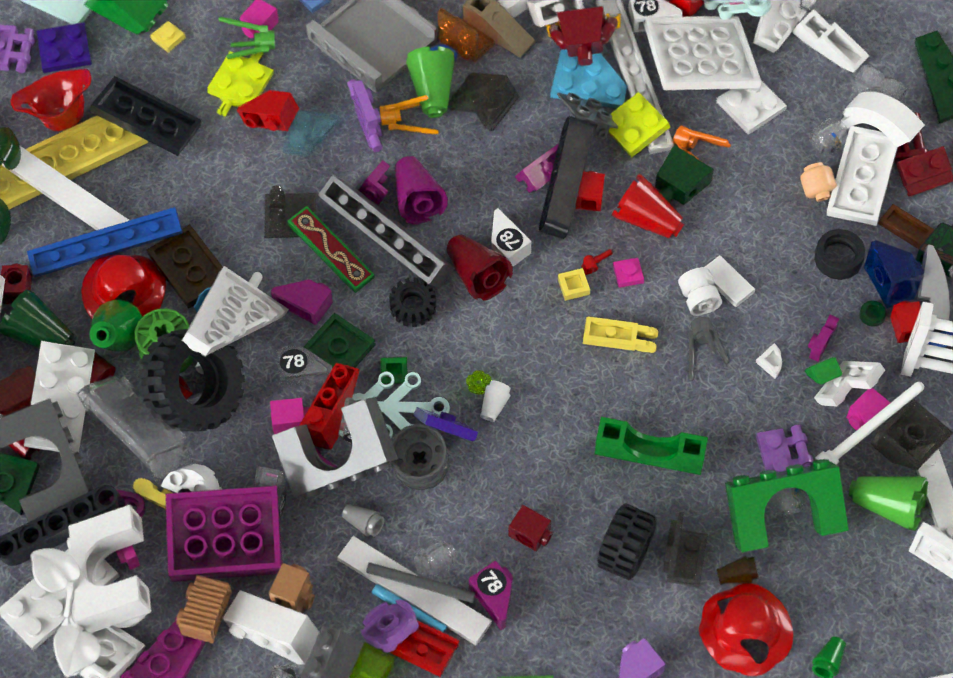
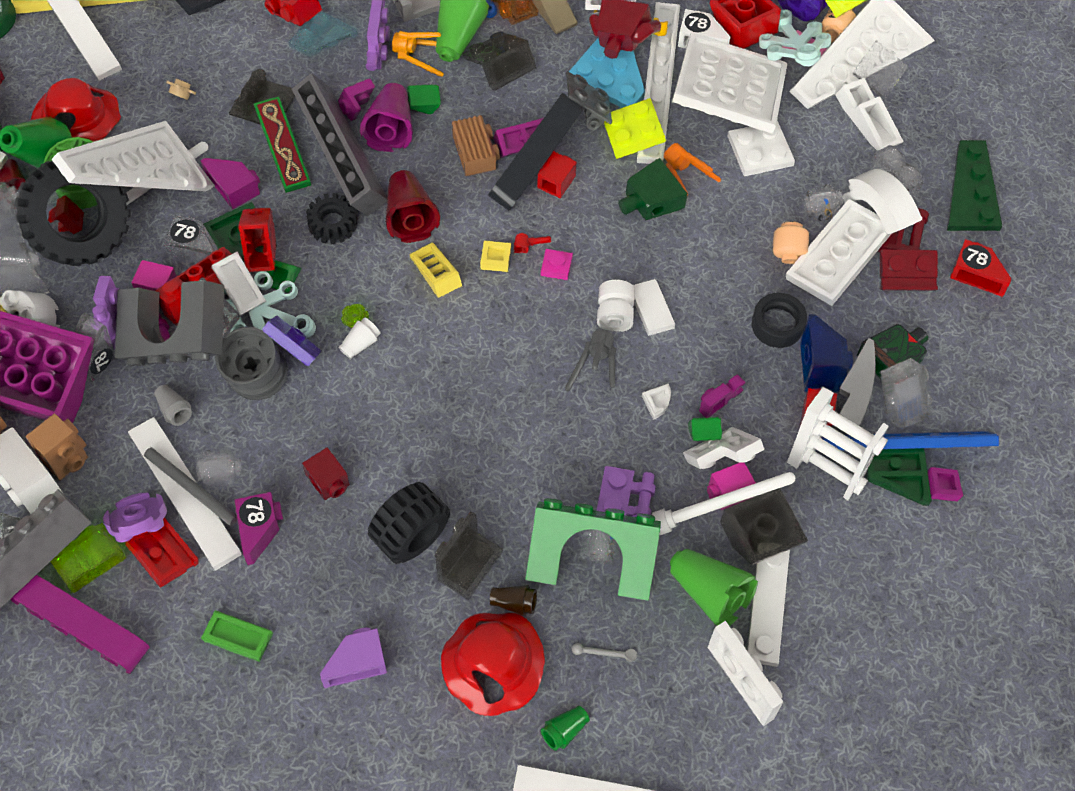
camera: 20 degrees right, 0 degrees up
(104, 242) = (84, 66): blue plate -> none
(186, 264) = (143, 104): dark brown plate -> none
(209, 229) = (180, 89): none -> tan plate
(267, 450) = (106, 305): none -> medium lavender plate
(365, 334) = (258, 229): none -> red torso
(365, 385) = (238, 283): none -> white tile
(421, 616) = (172, 513): medium azure bar -> none
(436, 160) = (424, 98): none -> green slope
(503, 189) = (475, 145): none -> medium nougat brick
(509, 239) = (451, 193): white slope -> none
(540, 322) = (442, 283): none -> light yellow slope
(619, 334) = (515, 319): light yellow hinge -> none
(621, 441) = (511, 454): green arch -> none
(648, 209) = (602, 208): red cone -> none
(850, 581) = (630, 654): none -> light grey hinge
(872, 313) = (786, 391): dark green tile -> none
(905, 226) = (861, 315): reddish brown tile -> none

